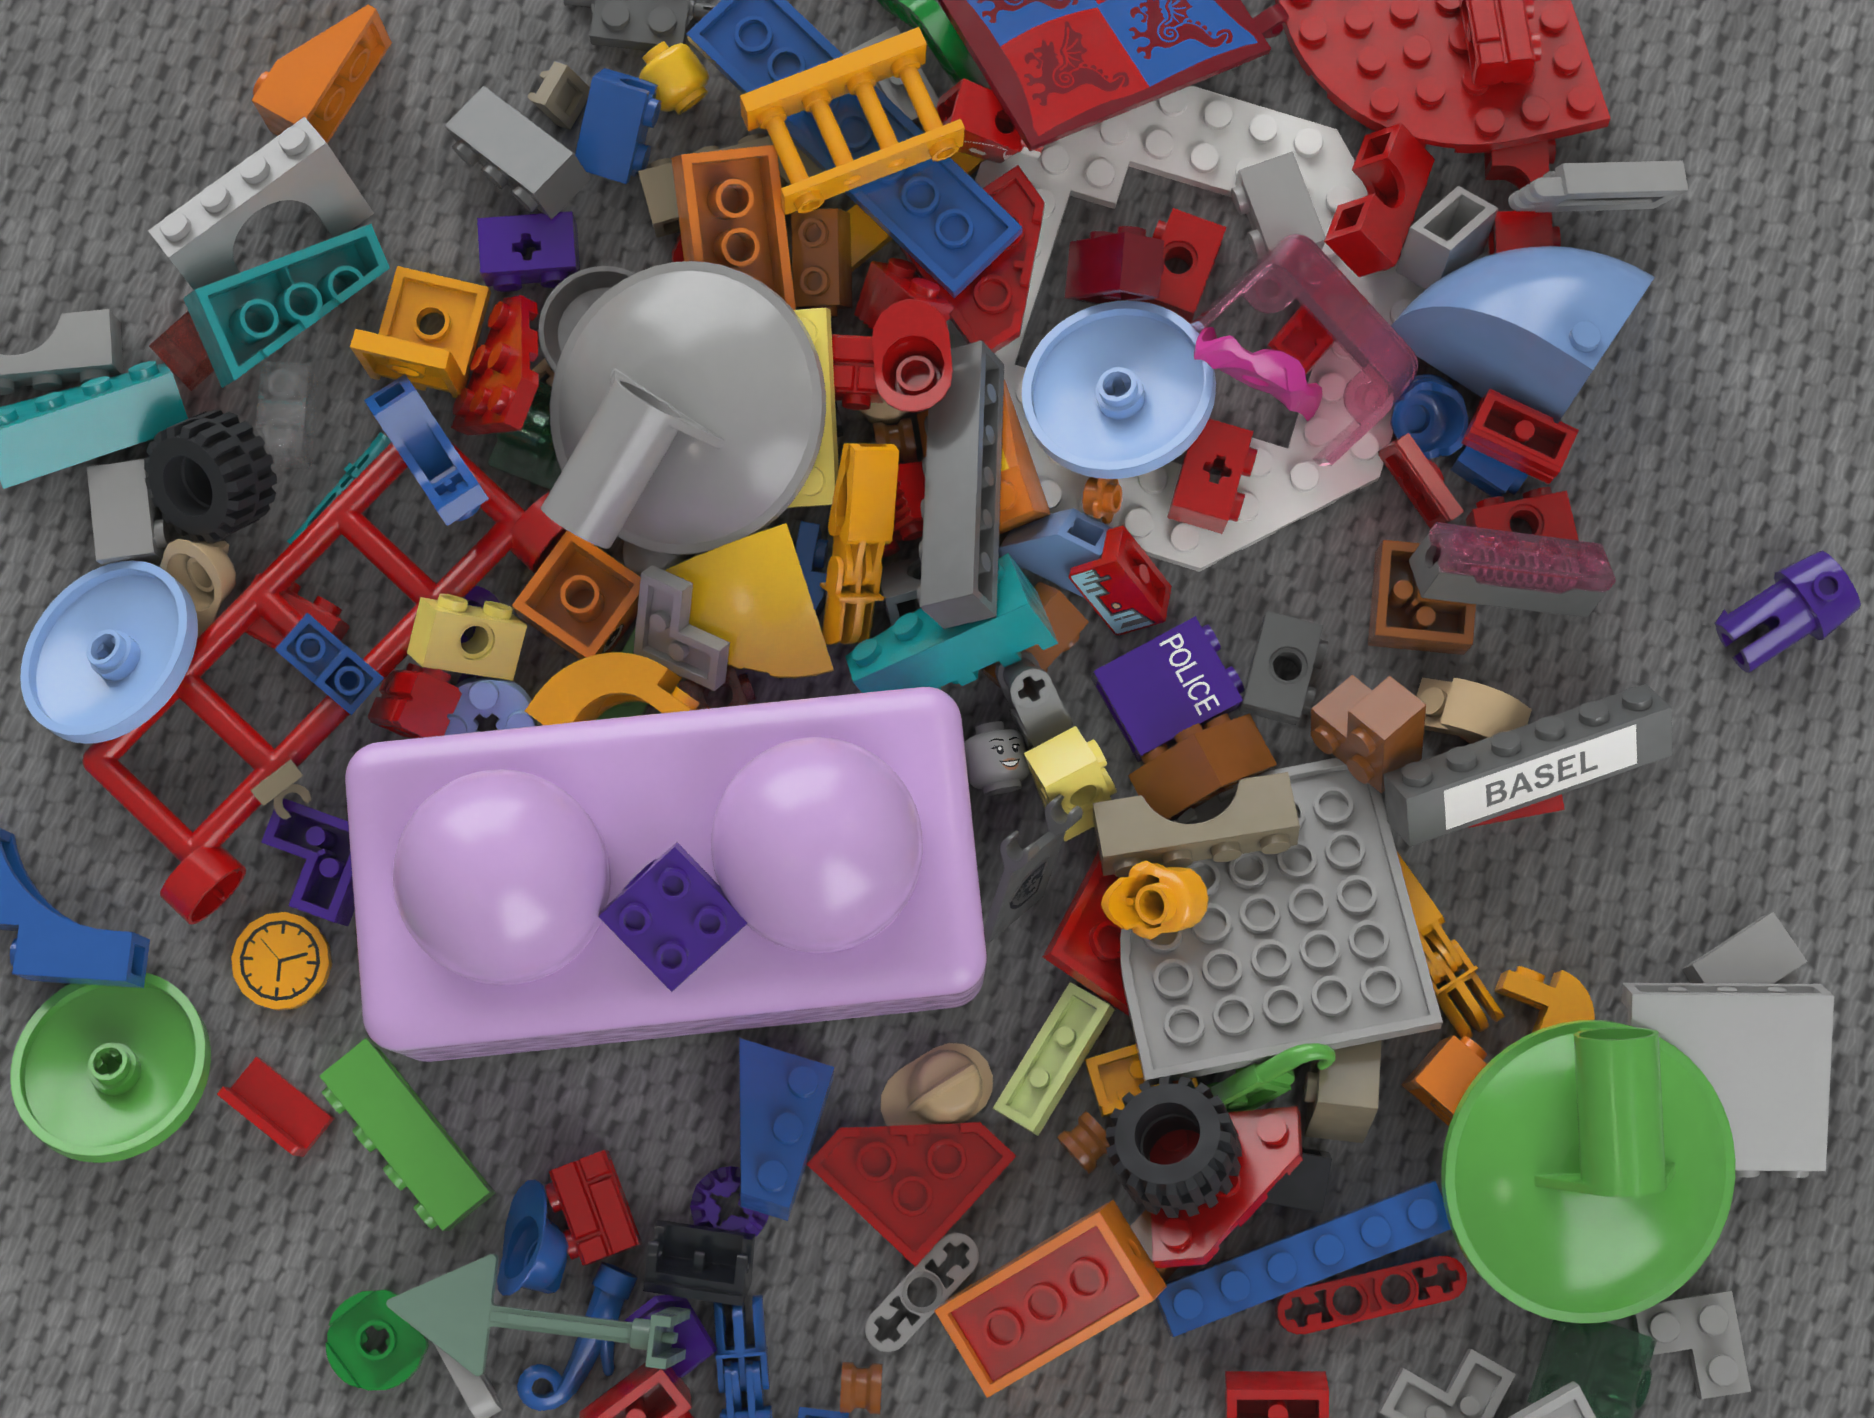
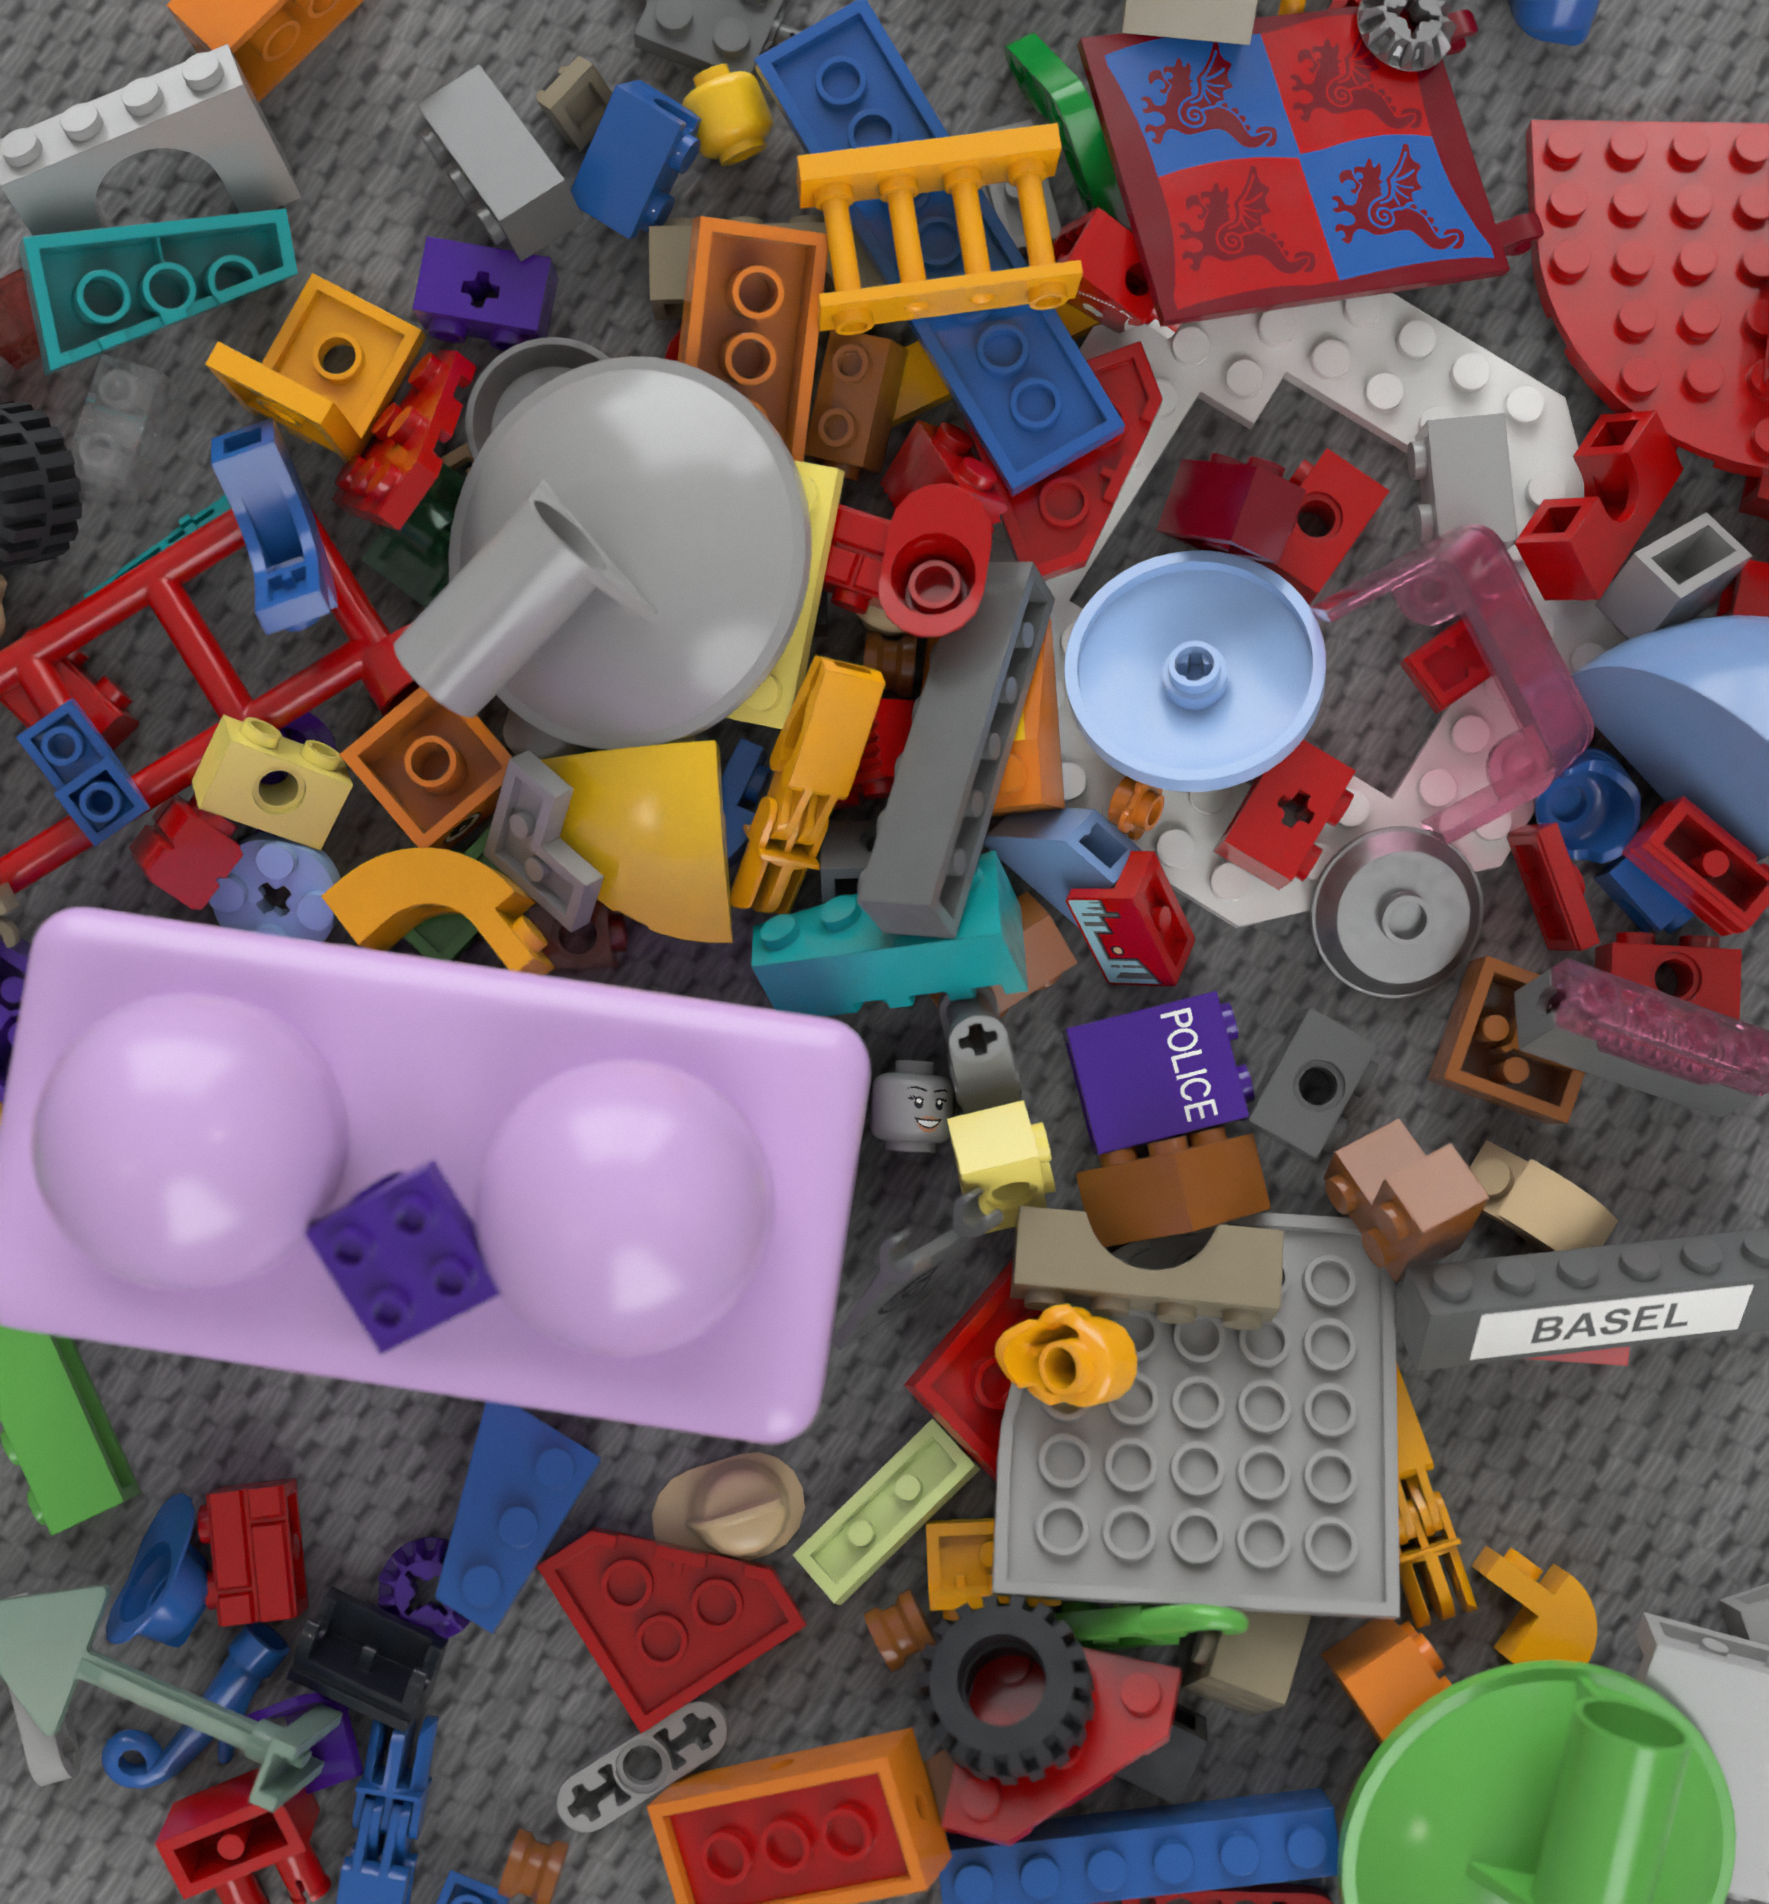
camera: 15 degrees right, 5 degrees up
(1262, 370) = (1395, 695): dark pink piece -> none
(1312, 529) = (1396, 912): none -> flat silver piece

